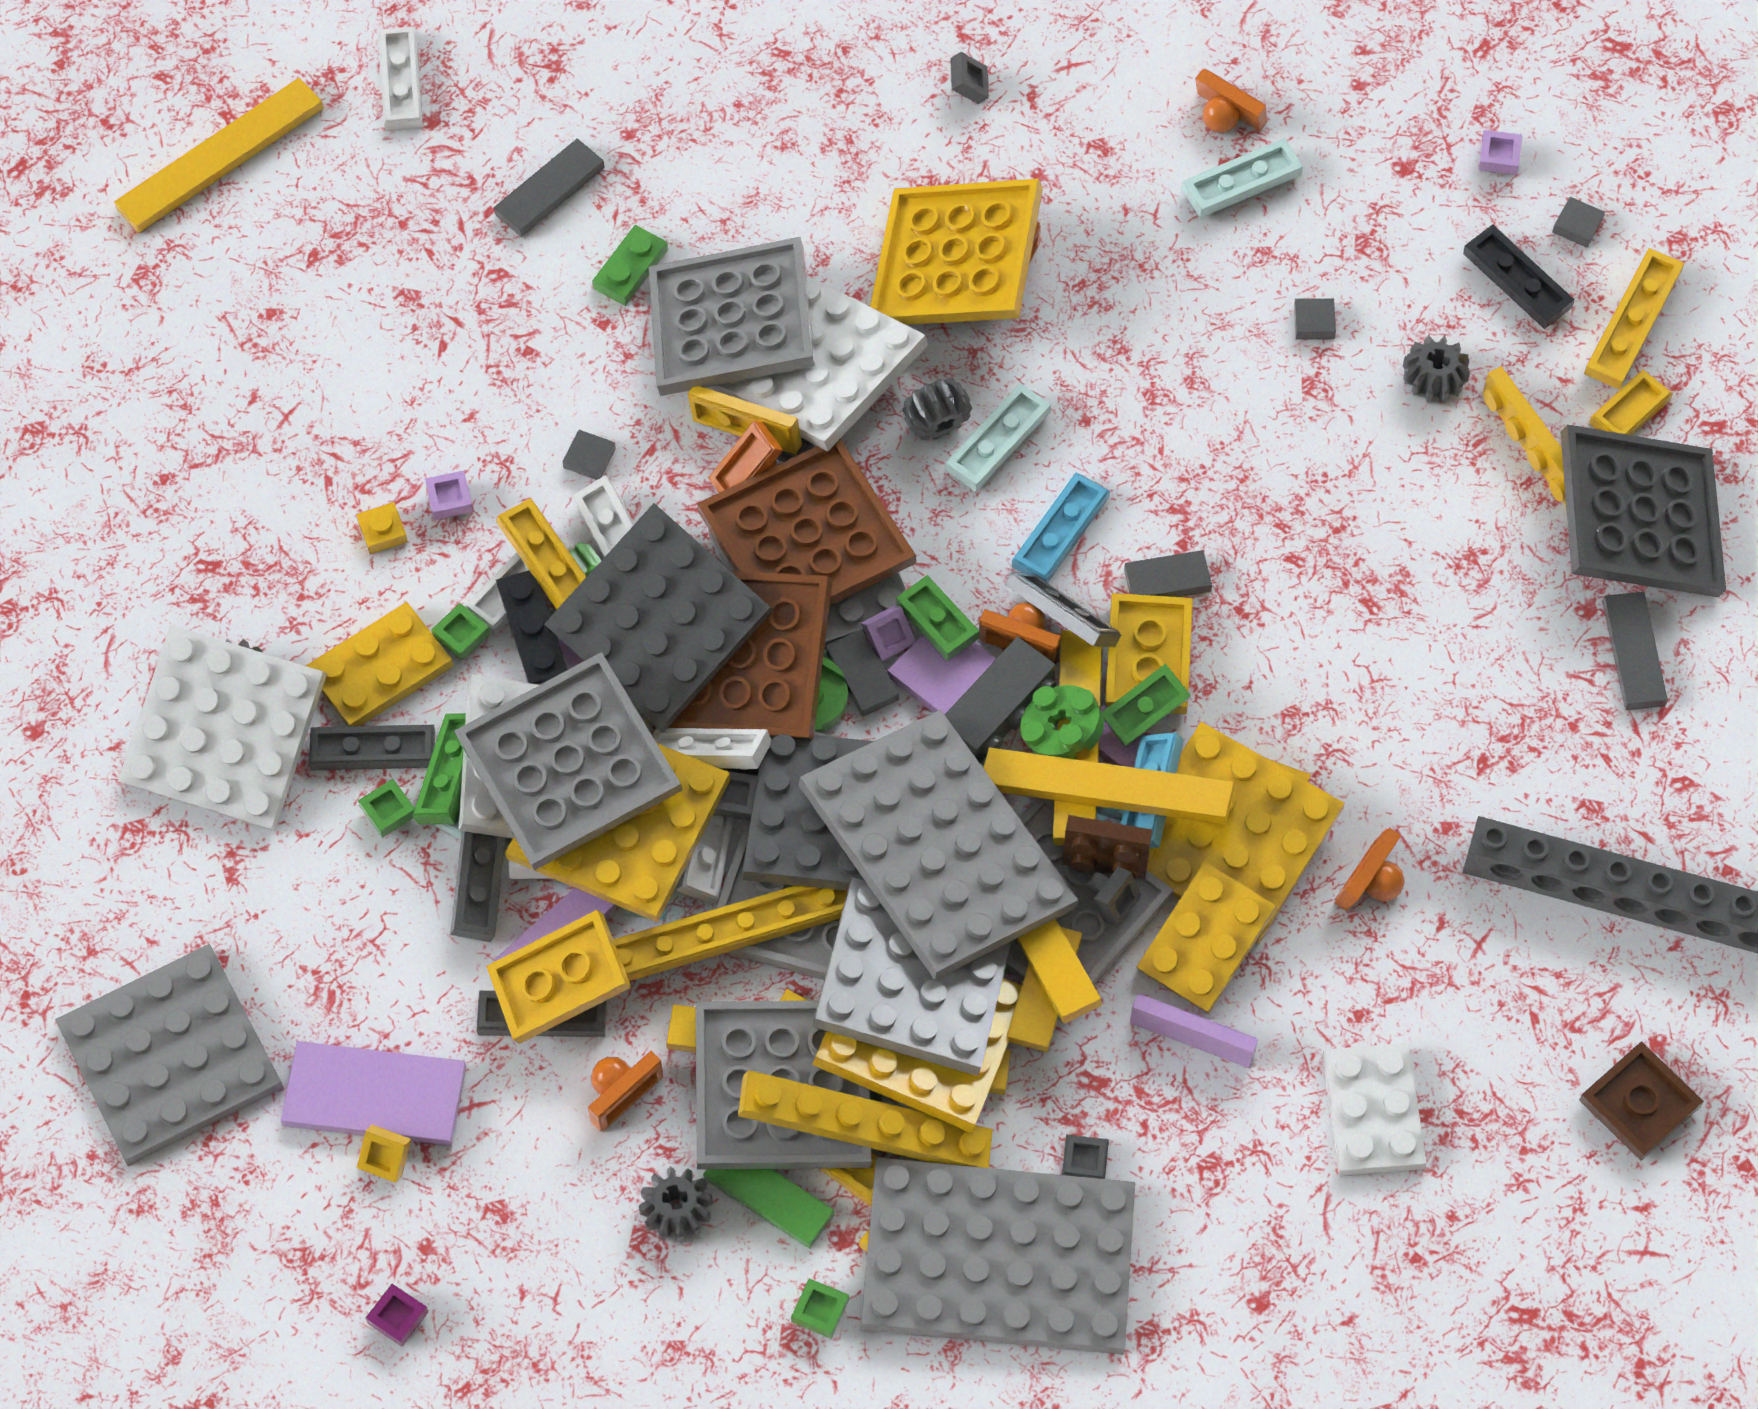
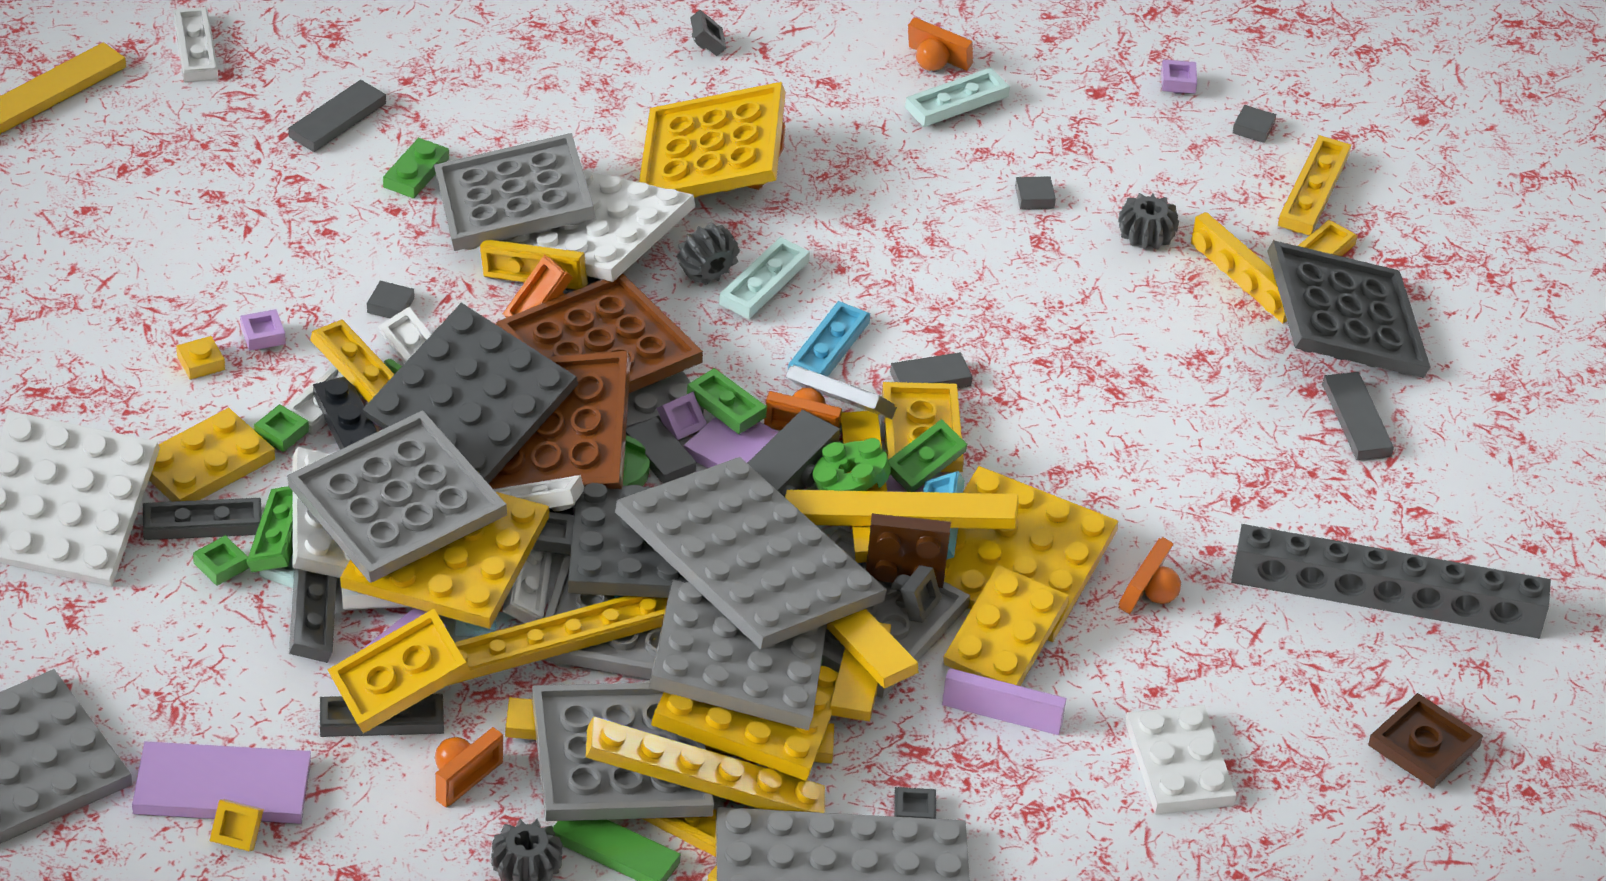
camera: 10 degrees left, 20 degrees down
(1518, 276) = (1209, 158): black plate -> none

